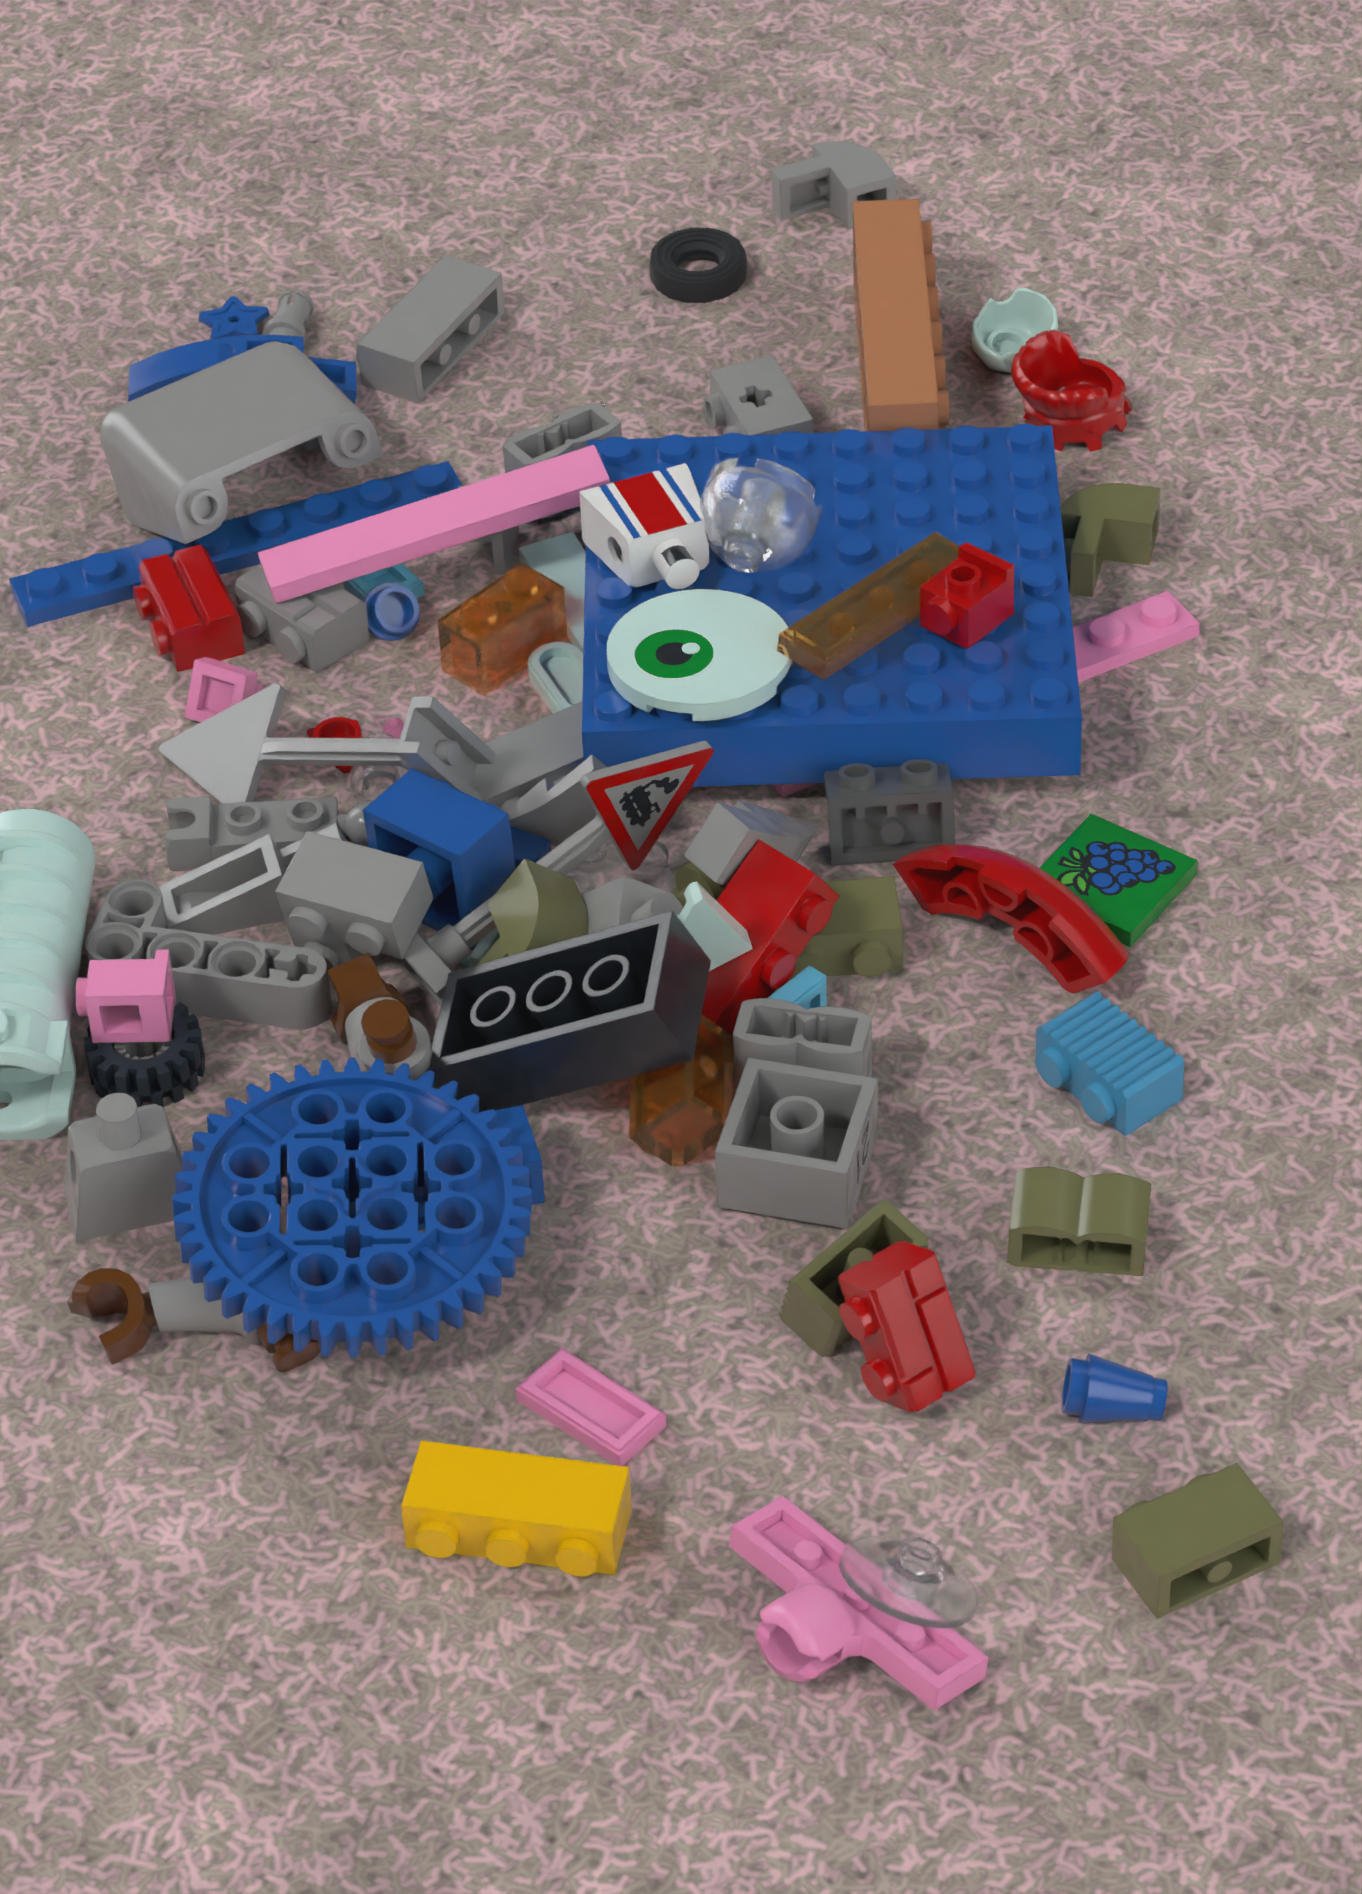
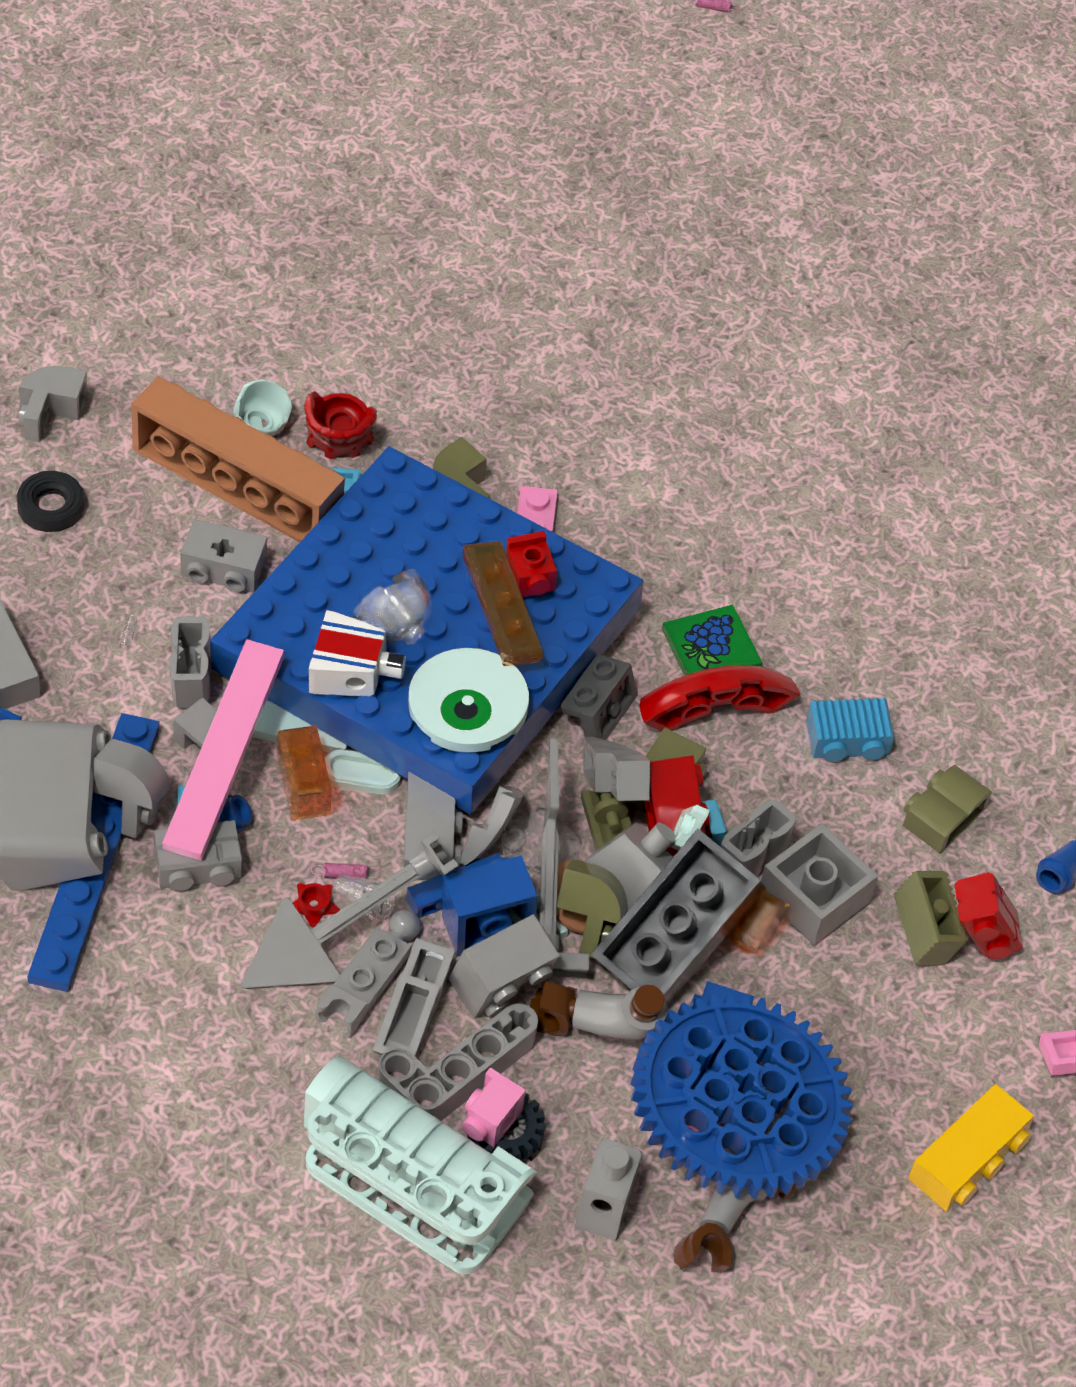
camera: 65 degrees left, 10 degrees up
(188, 608) = (144, 904): red brick -> none
(218, 687) = (236, 931): bright pink tile -> none
(323, 482) = (133, 777): none -> light grey brick
(591, 1407) = (913, 1079): bright pink tile -> none

